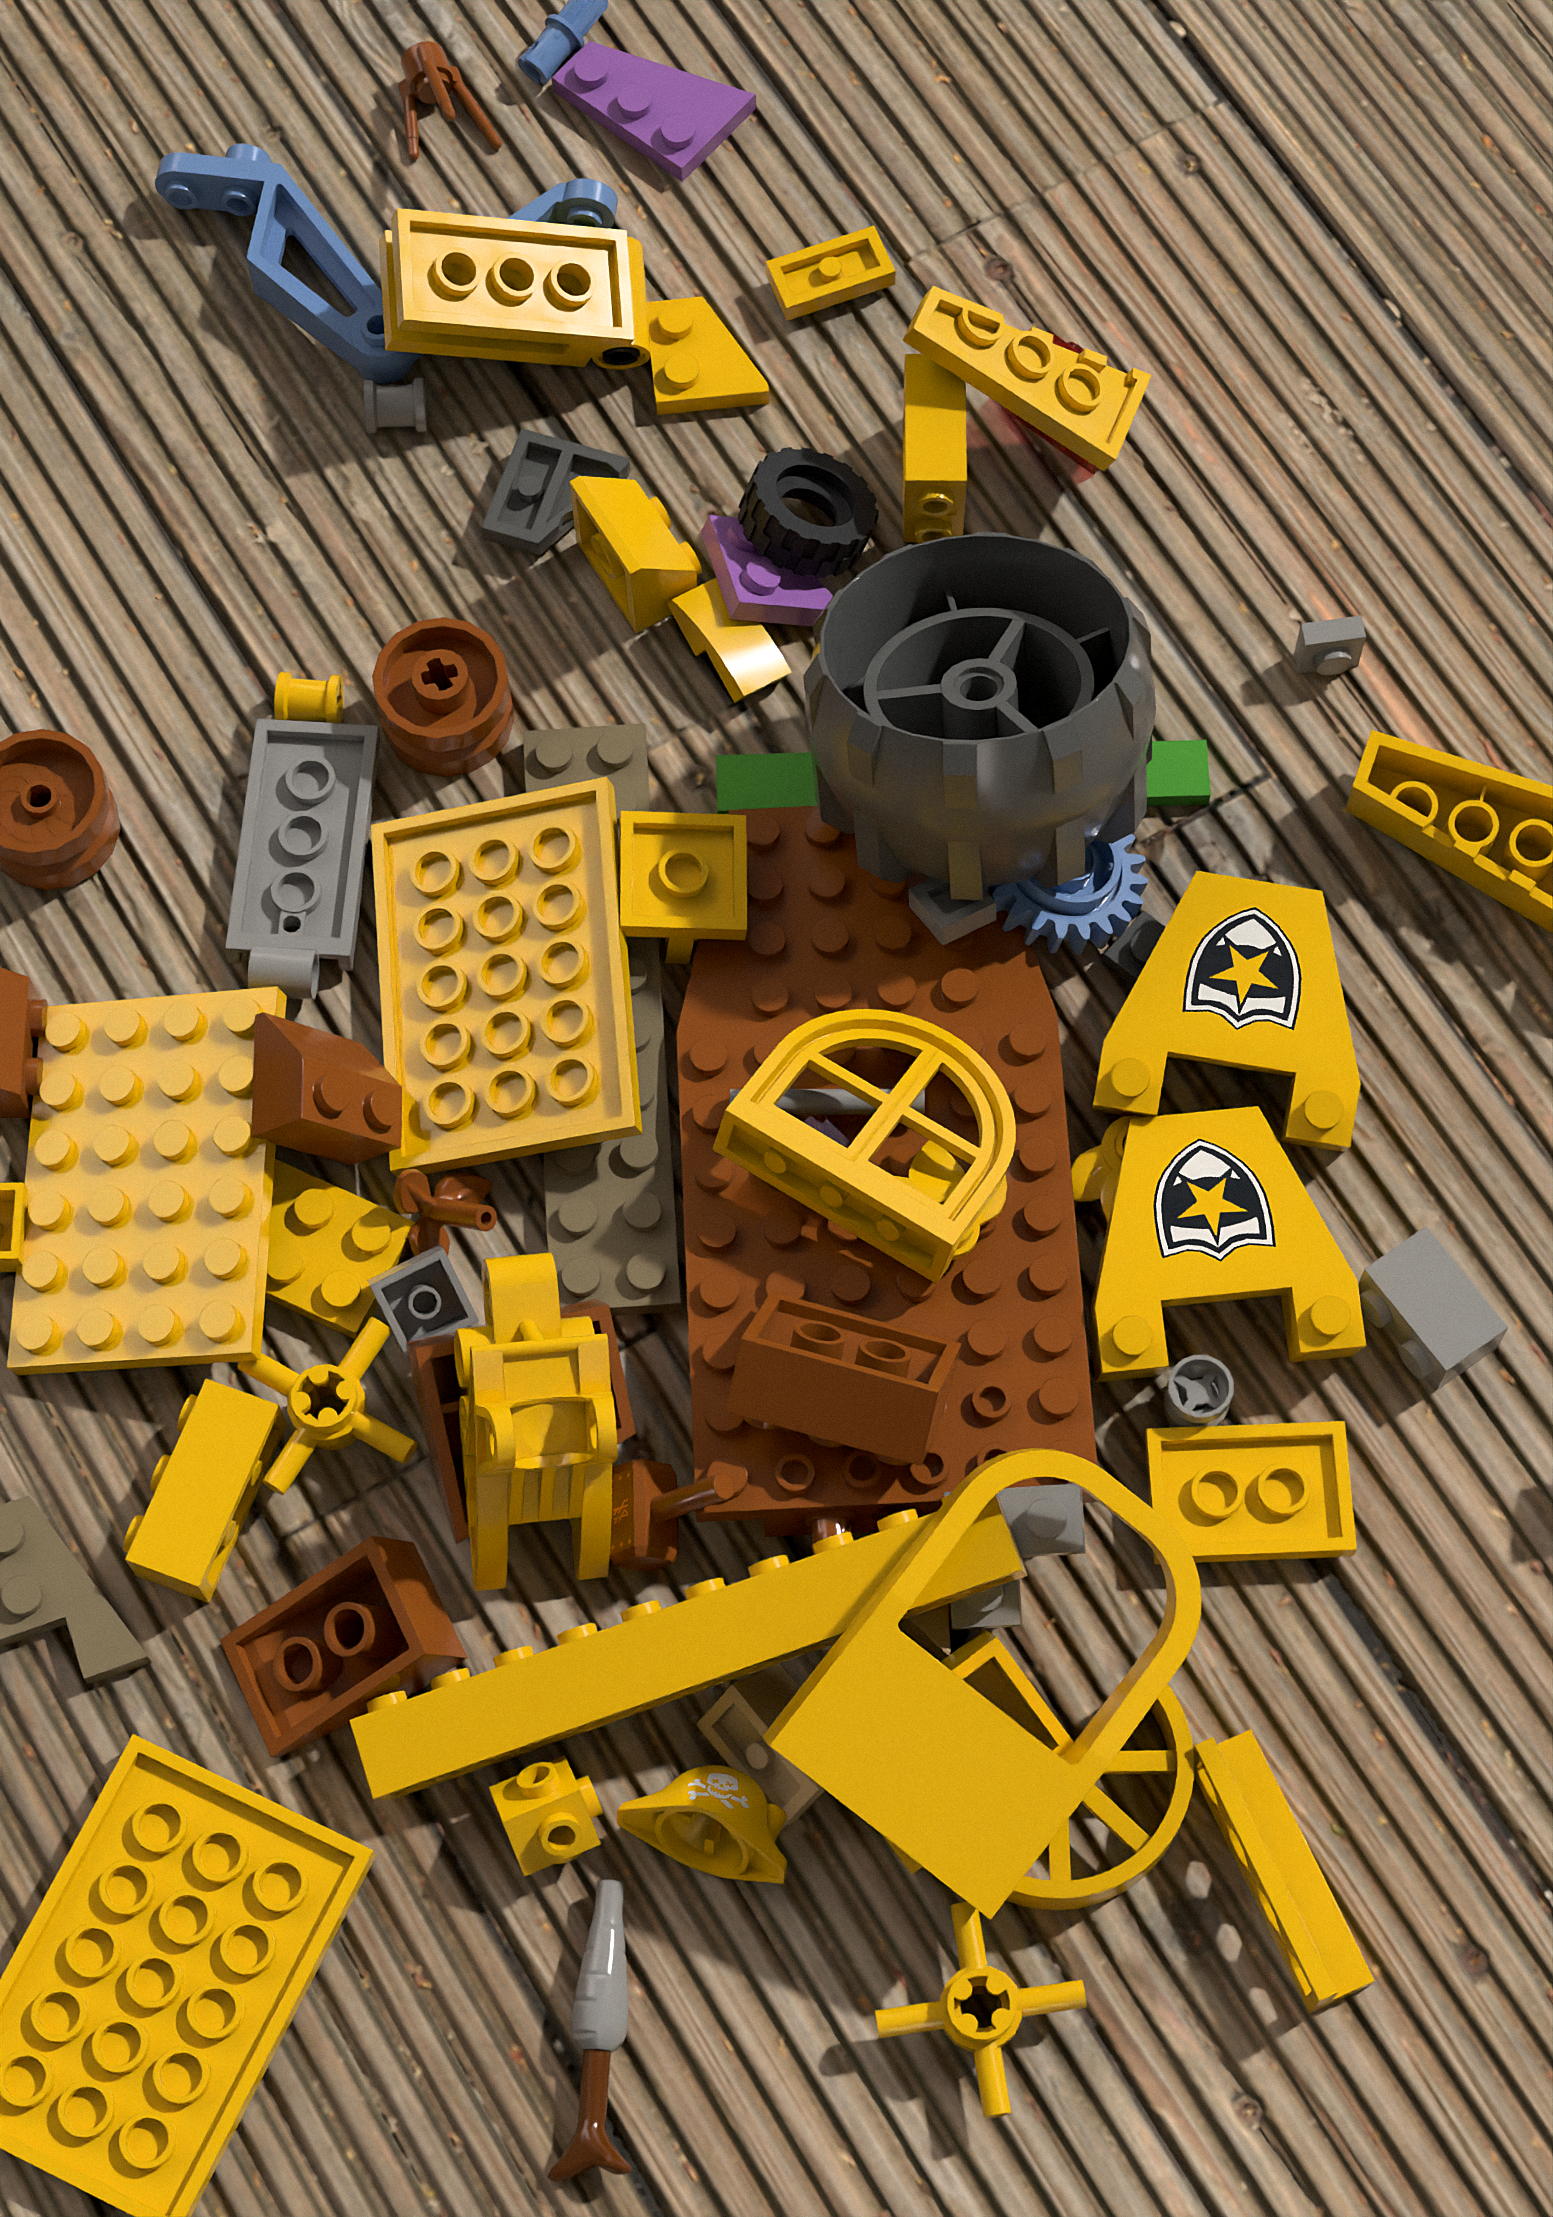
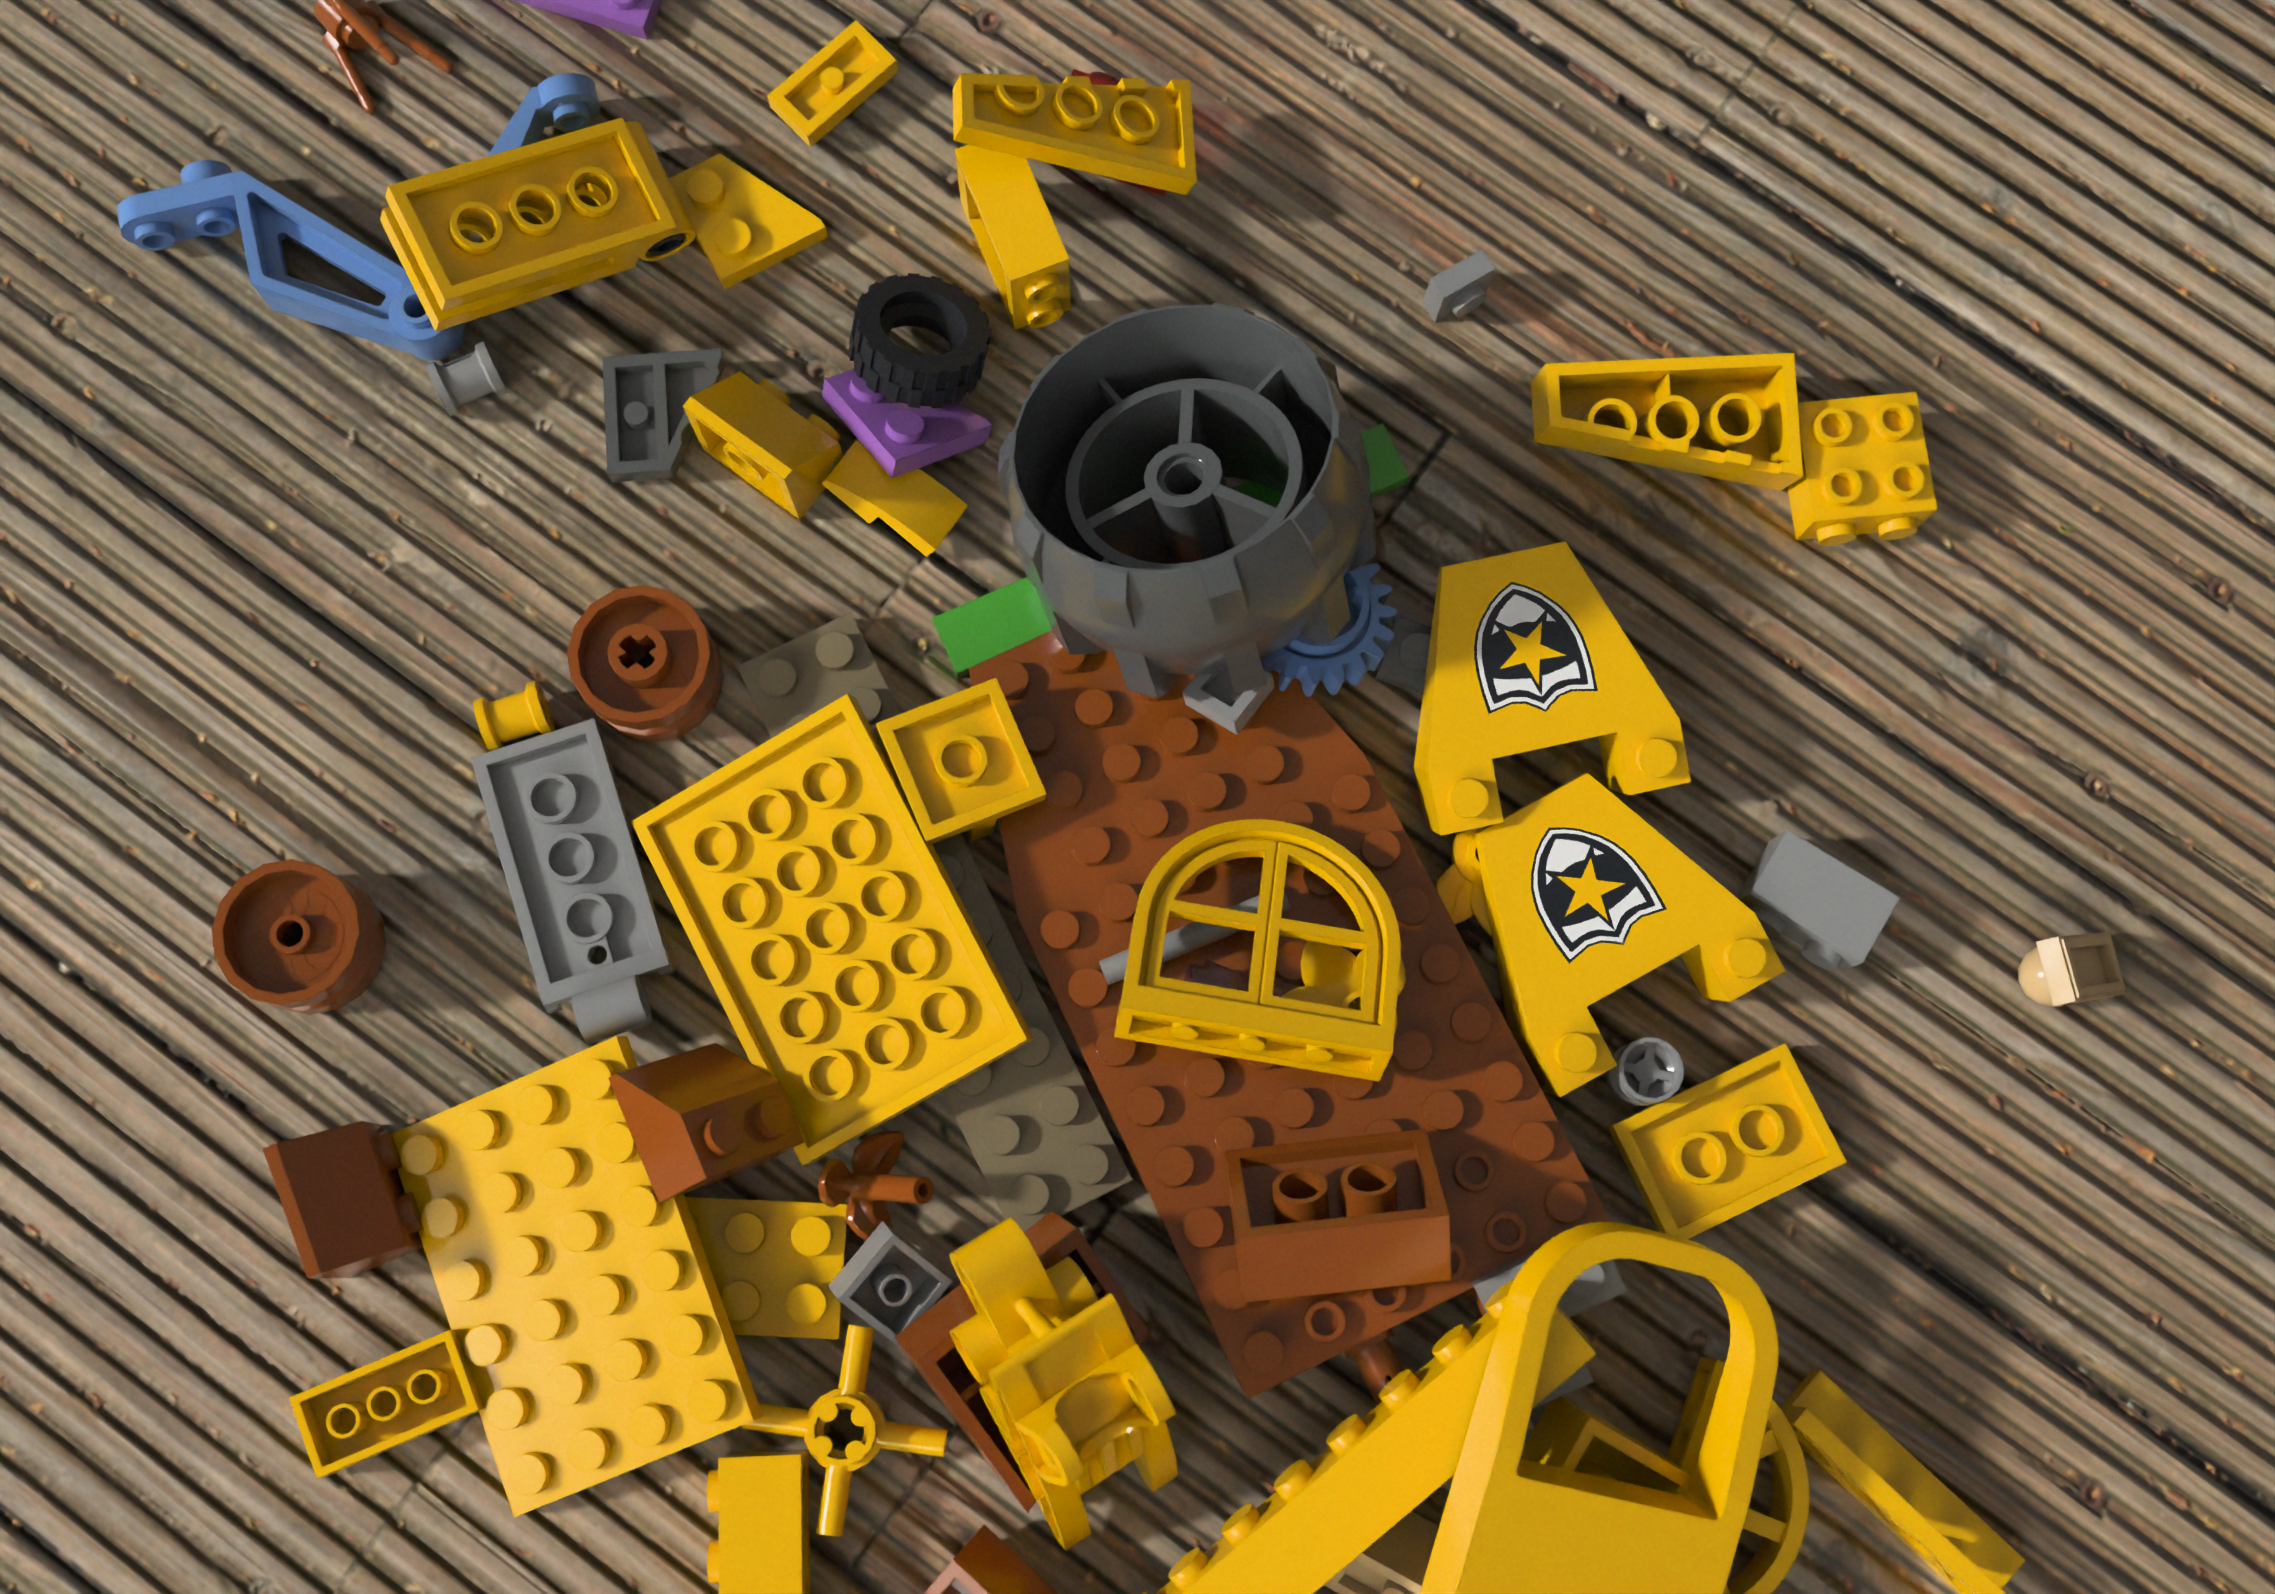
camera: 30 degrees left, 10 degrees up
(648, 1511) = (1200, 1403): dark orange piece -> none

